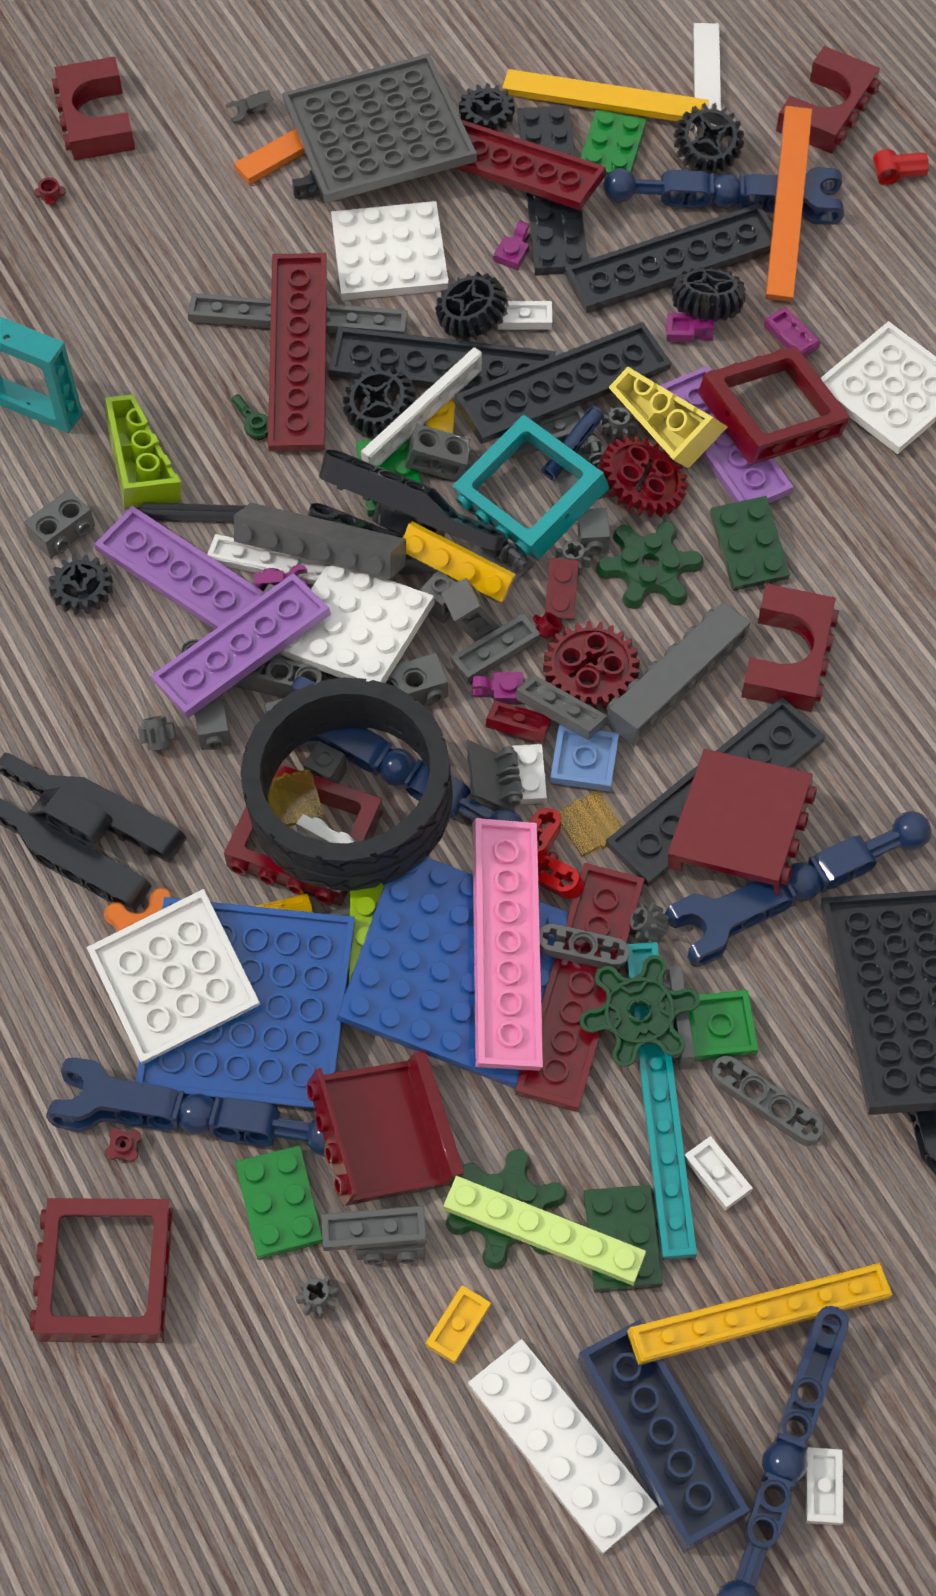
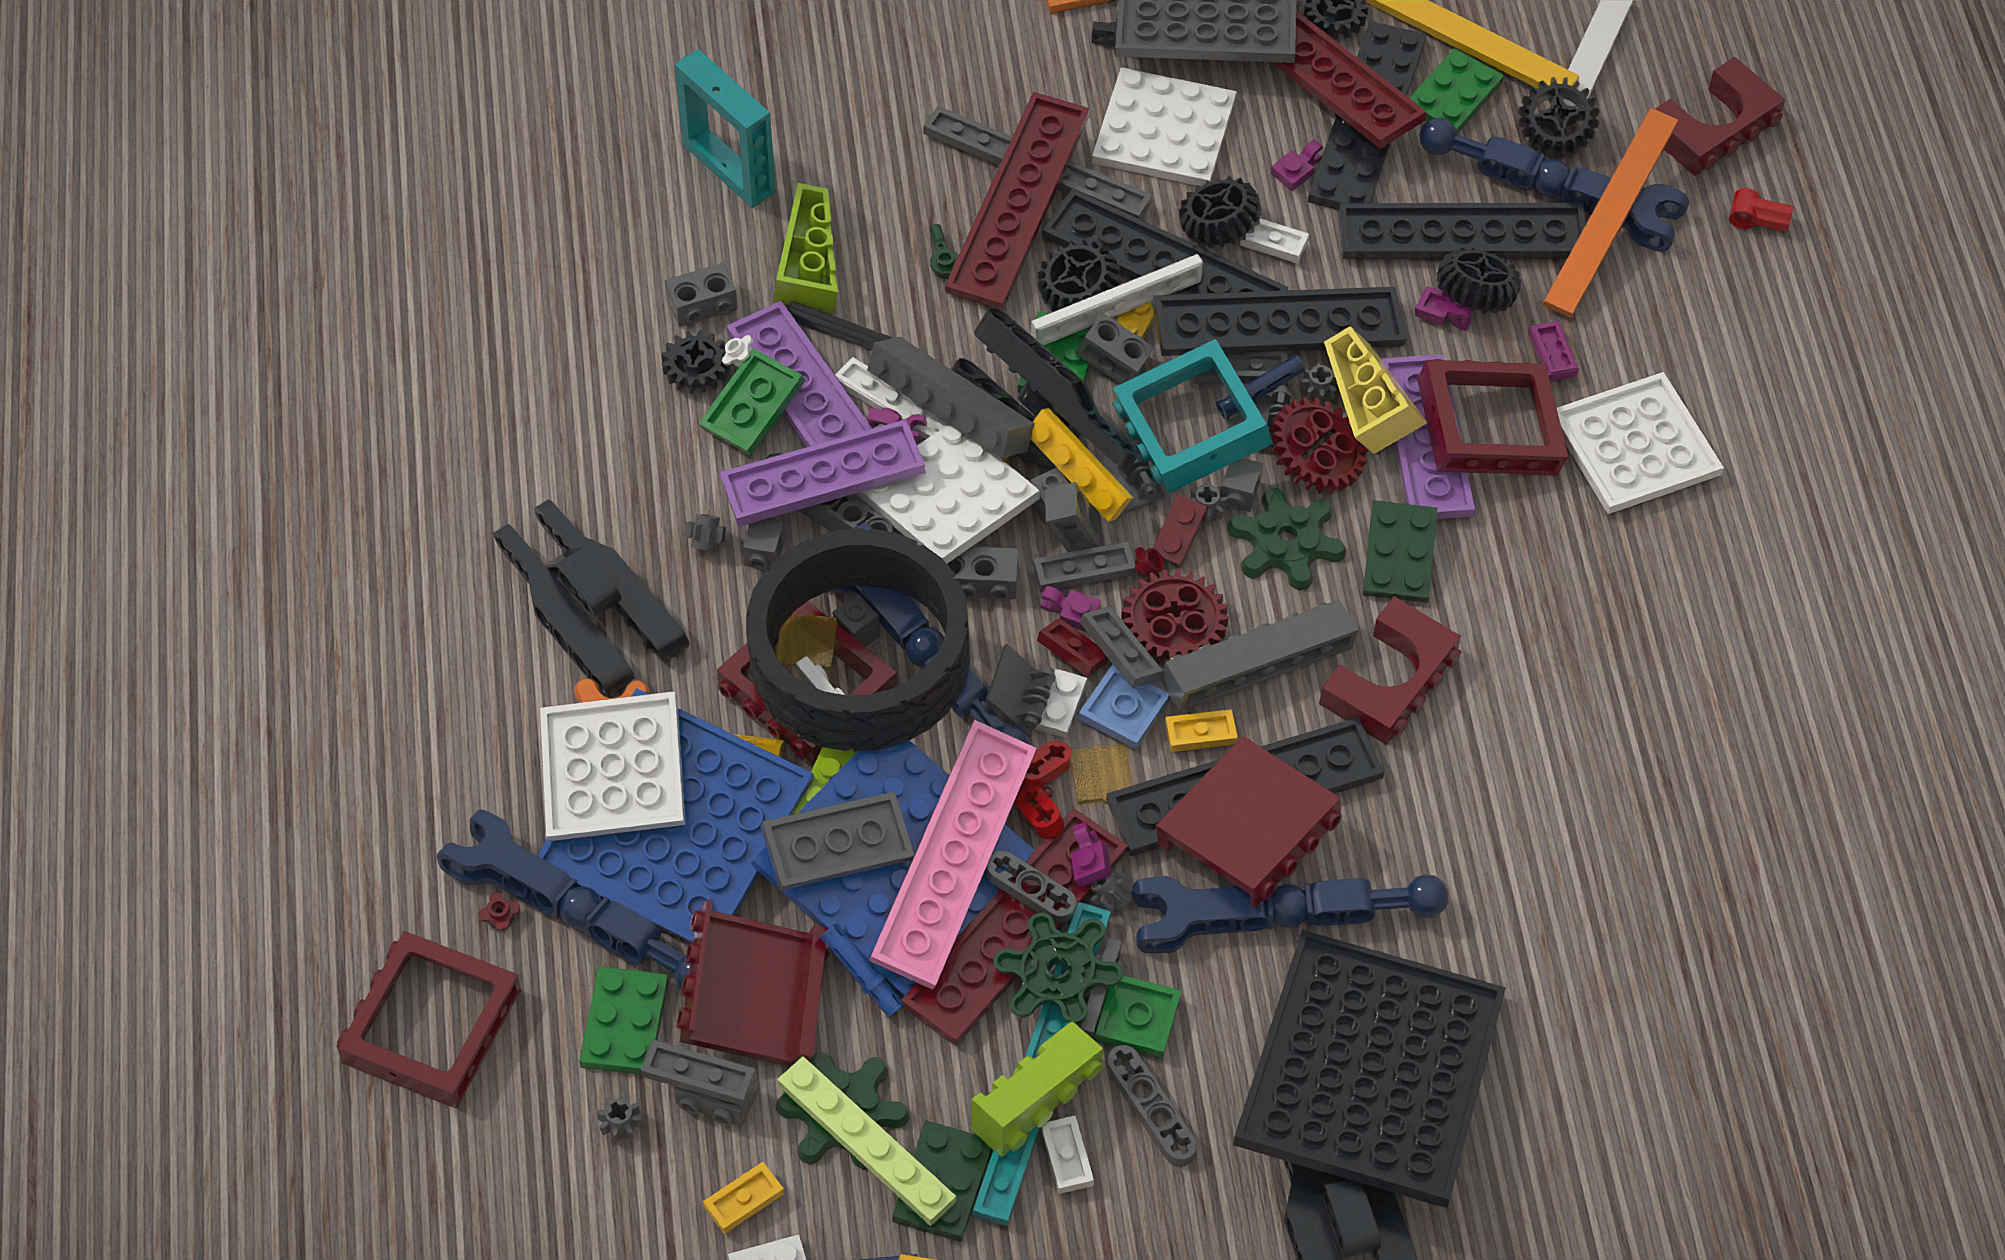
camera: 20 degrees right, 5 degrees down
(116, 563) = (737, 351): none -> white plate
(147, 603) = (752, 402): none -> green plate
(405, 971) = (837, 841): none -> dark grey plate
(483, 1083) = (865, 974): none -> blue pin
(623, 902) = (1092, 859): none -> magenta plate
(657, 755) = (1201, 730): none -> yellow plate
(671, 1127) = (1035, 1089): none -> lime wedge

